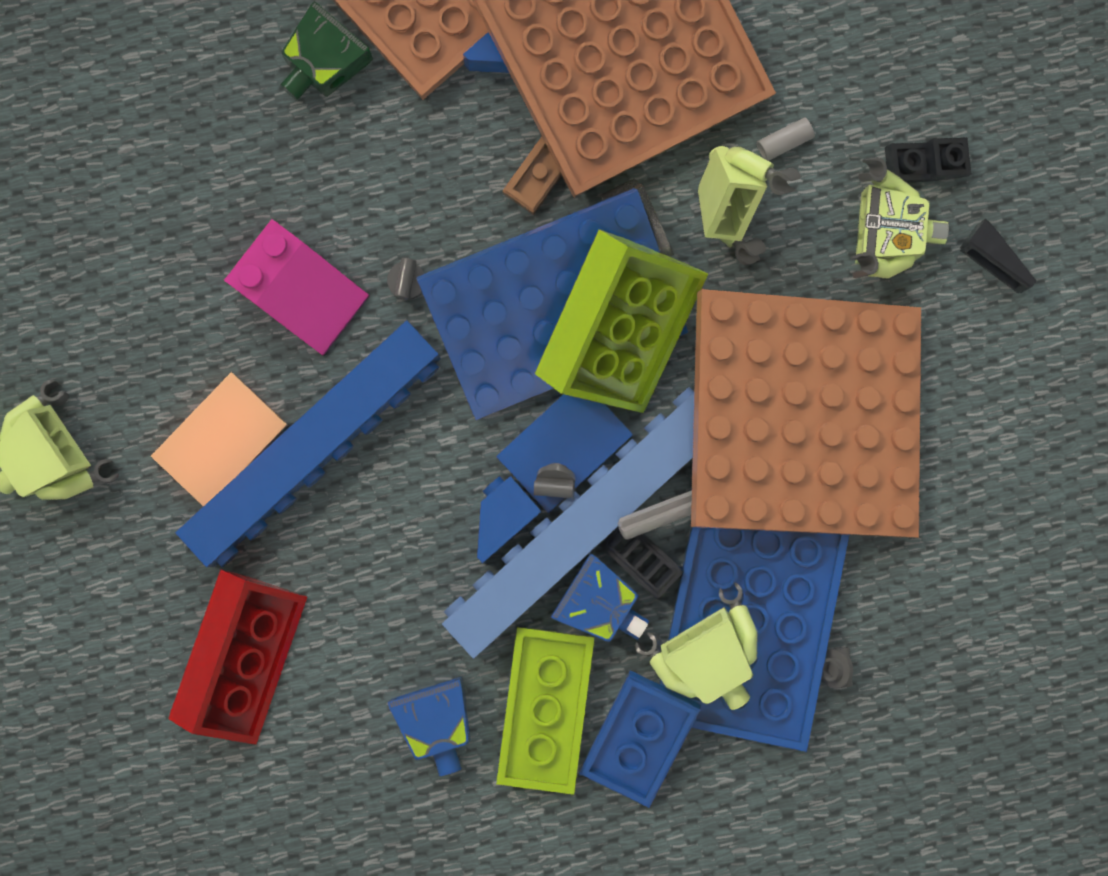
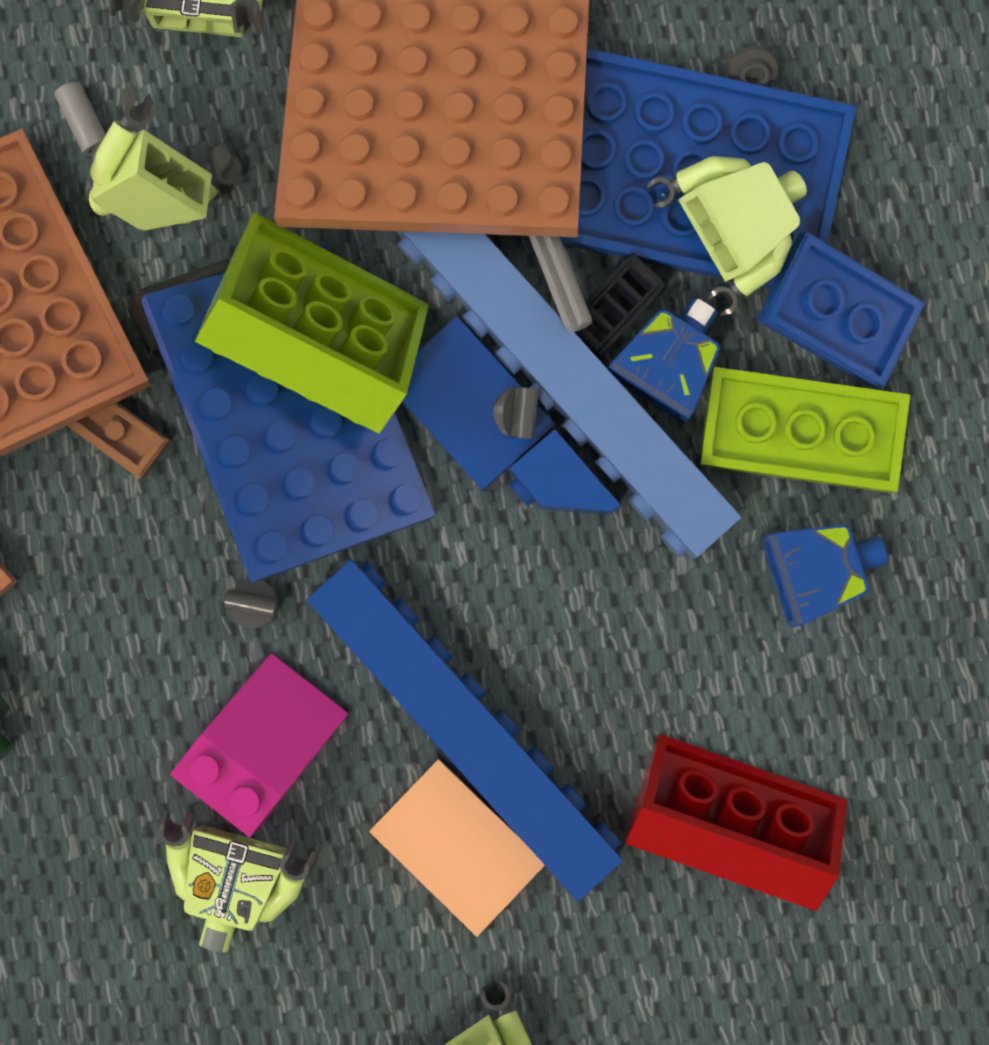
camera: 80 degrees left, 0 degrees up
(195, 266) = (230, 878): none -> torso

